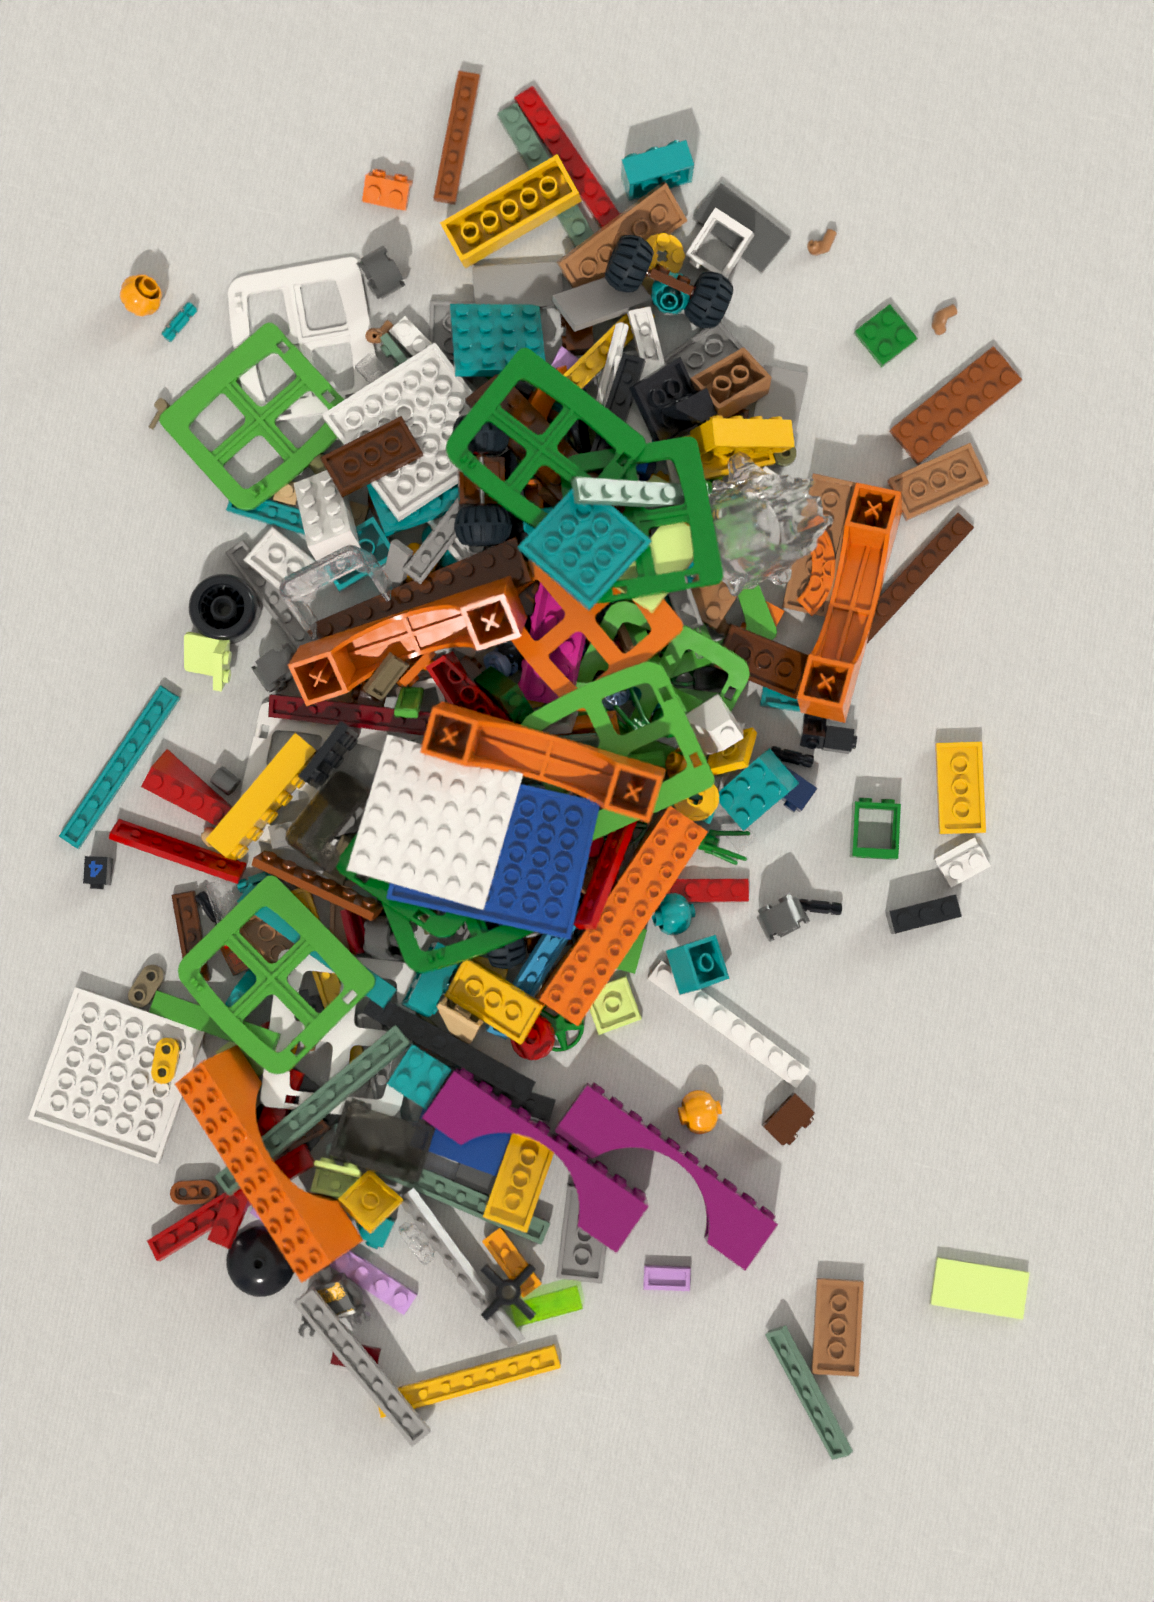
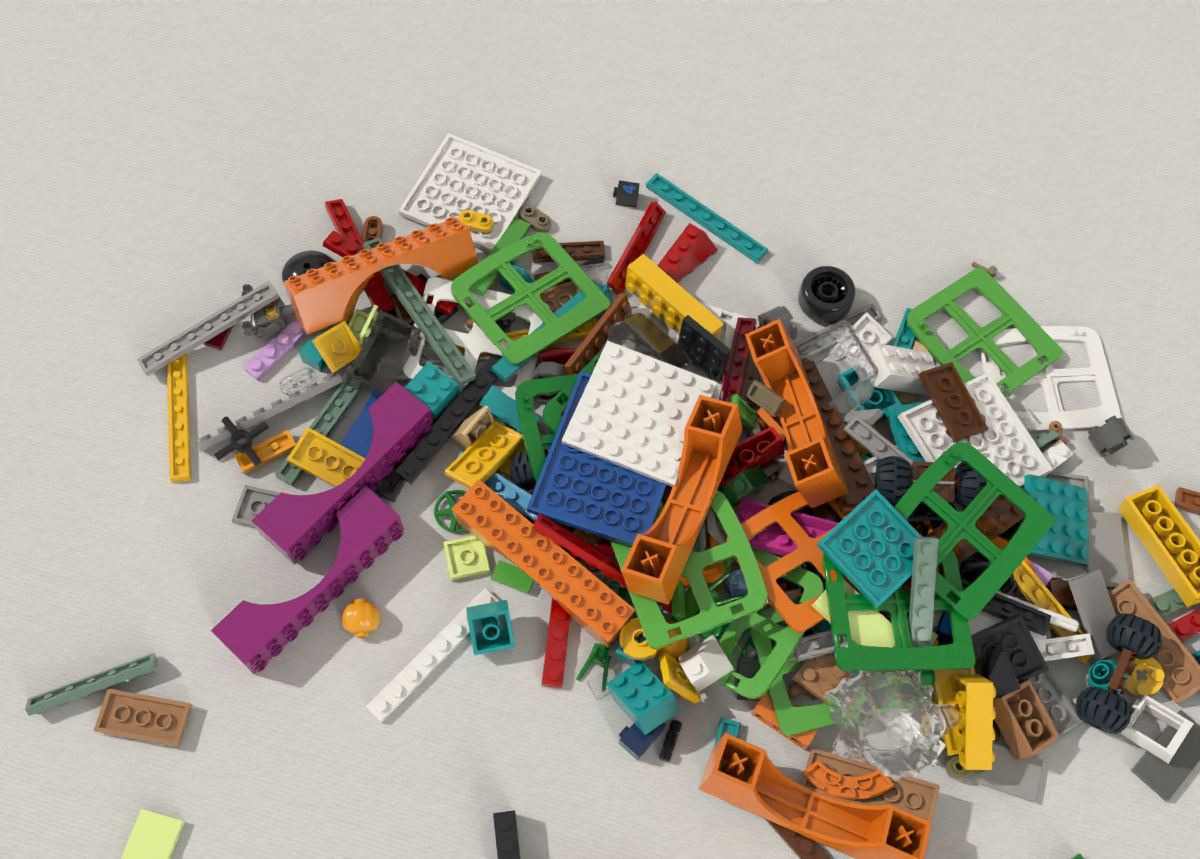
camera: 90 degrees right, 20 degrees down
(140, 295) = (1080, 262): light orange plant -> none
(179, 321) = (1060, 290): teal axle -> none
(208, 657) = (787, 281): yellowish green bracket -> none
(225, 780) = (690, 283): dark grey piece -> none
(386, 189) = (1182, 452): orange bracket -> none
(500, 662) = (770, 492): light blue wheel -> none
(538, 1041) = (446, 489): red tile -> none
(549, 1305) = (223, 479): clear neon green tile -> none
(666, 1277) = (223, 575): lavender tile -> none
(673, 914) = (538, 615): teal plant -> none
(768, 661) = (764, 716): reddish brown tile -> none
(782, 917) = (522, 710): dark grey brick -> none
(789, 1119) = (339, 696): reddish brown brick -> none
(813, 732) = (691, 762): black bracket -> none
(821, 907) = (528, 749): black axle -> none
(822, 246) = (1159, 825): medium nougat arm -> none
(839, 740) = (682, 786): black brick -> none
(875, 853) = (577, 788): green window -> none

